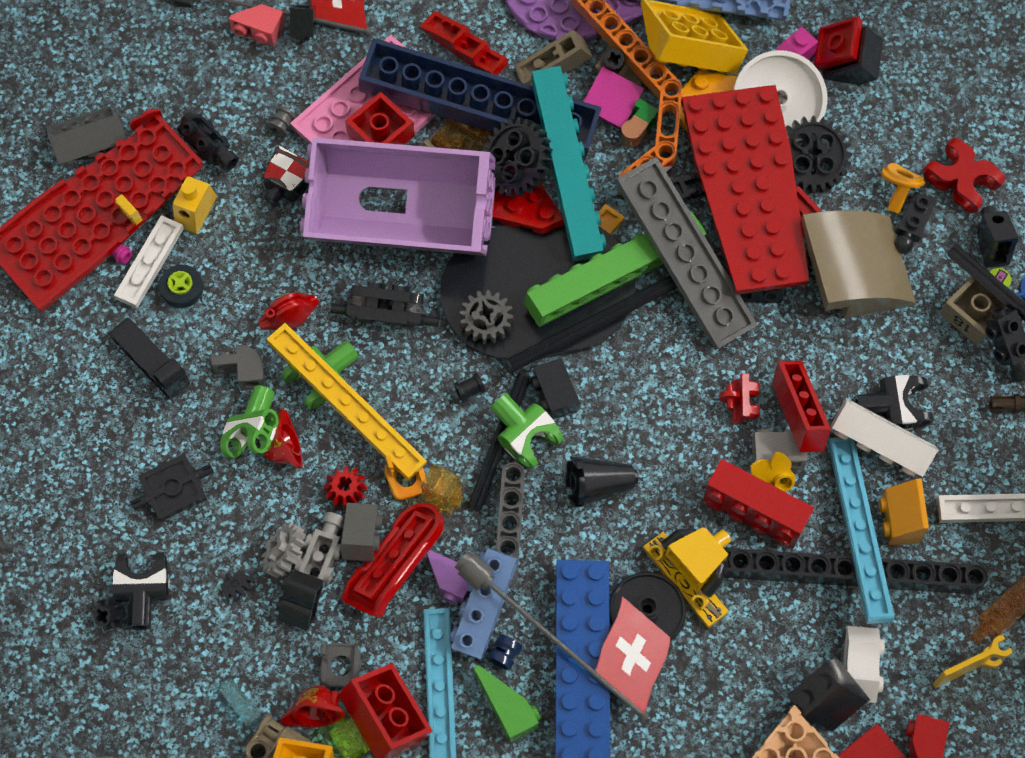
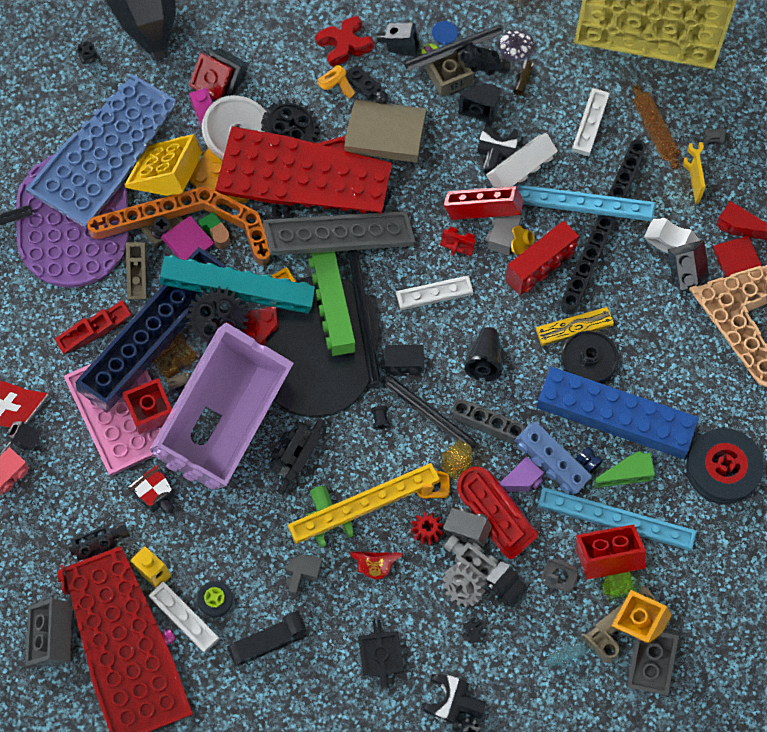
camera: 70 degrees left, 0 degrees up
(128, 209) = (142, 613): yellow tile -> none
(253, 424) = (355, 577): bright green connector -> none
(280, 122) = (103, 481): dark grey bush -> none
(290, 309) = (266, 527): red hat -> none
(314, 709) = (587, 601): red hat -> none
(478, 324) = (340, 385): dark grey gear -> none
(522, 427) = (428, 389): bright green connector -> none
(628, 656) = (622, 376): flag -> none
(662, 397) = (434, 293): none -> white tile
(697, 558) = (570, 307): yellow torso -> none
(904, 513) = (579, 171): light orange slope -> none
(949, 360) = (480, 102): none -> black slope

